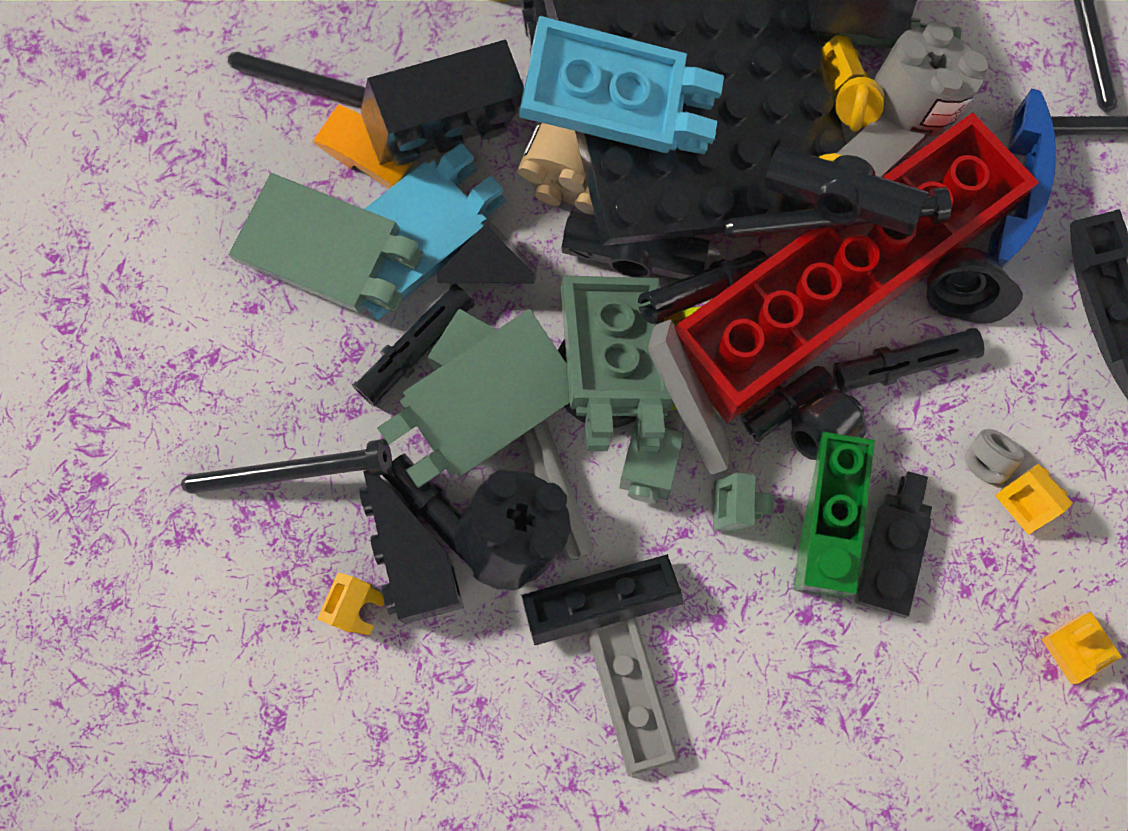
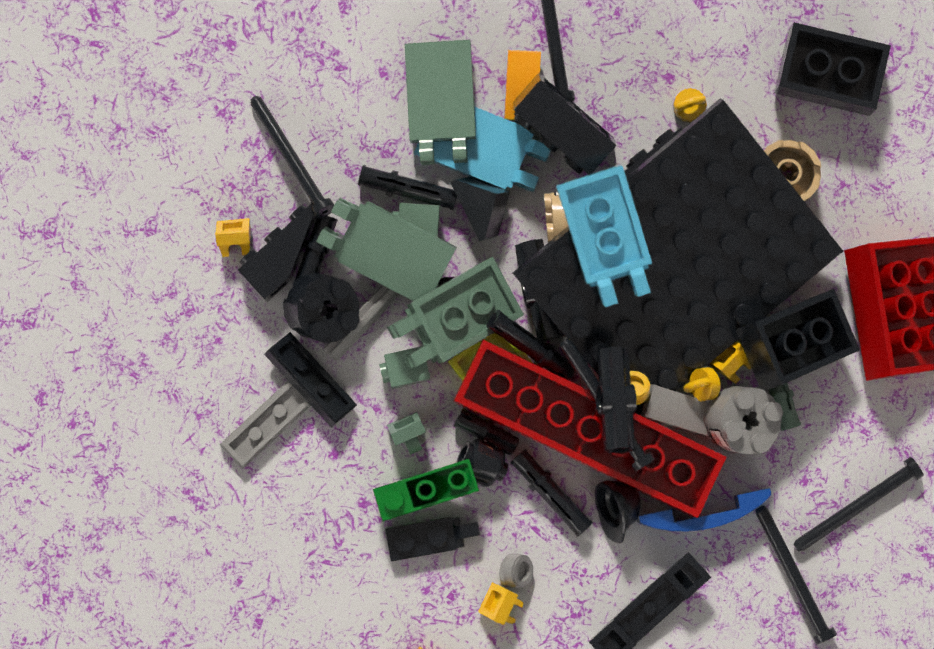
camera: 55 degrees right, 10 degrees up
(689, 397) = (450, 371): light grey tile -> none

